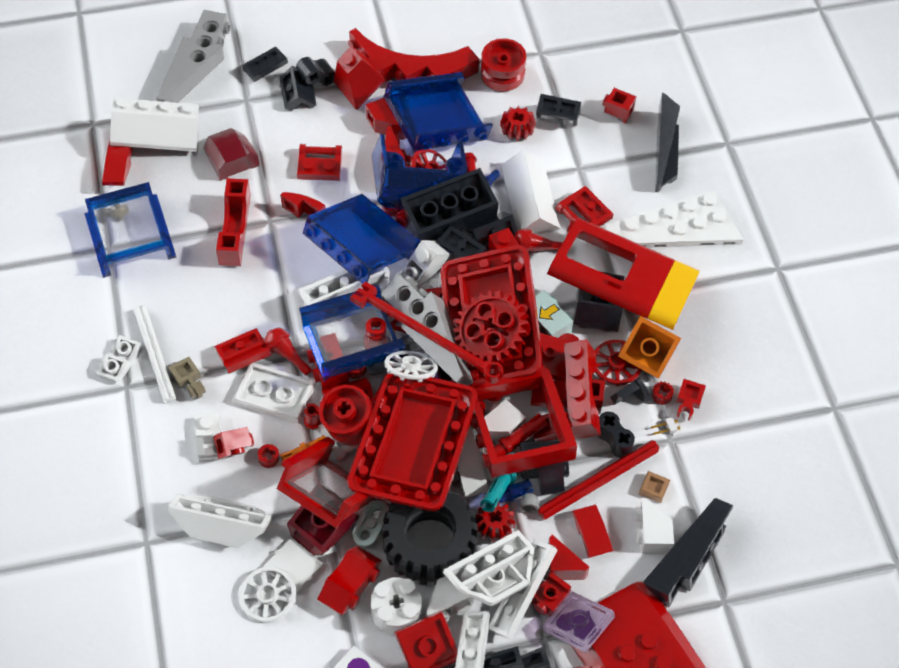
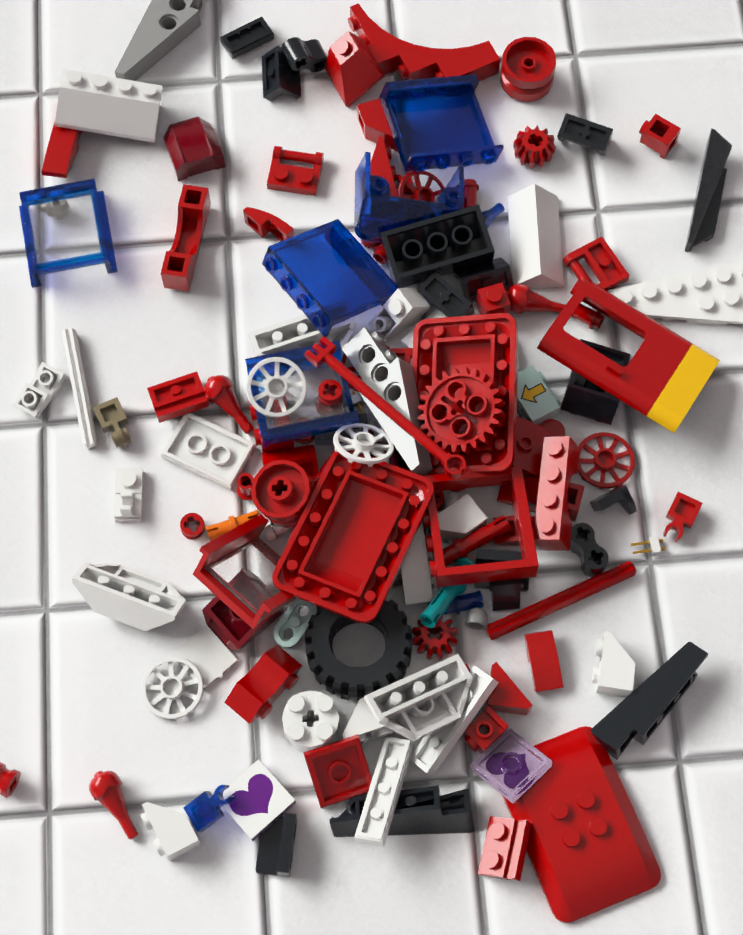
camera: 10 degrees right, 10 degrees up
(233, 442) = (154, 507): brick -> none
(329, 328) = (276, 387): none -> white wheel
(584, 249) = (589, 316): none -> red pin
(649, 347) = (644, 449): orange slope -> none
(654, 487) = (623, 616): medium nougat tile -> none
(666, 388) = (656, 499): red bush -> none

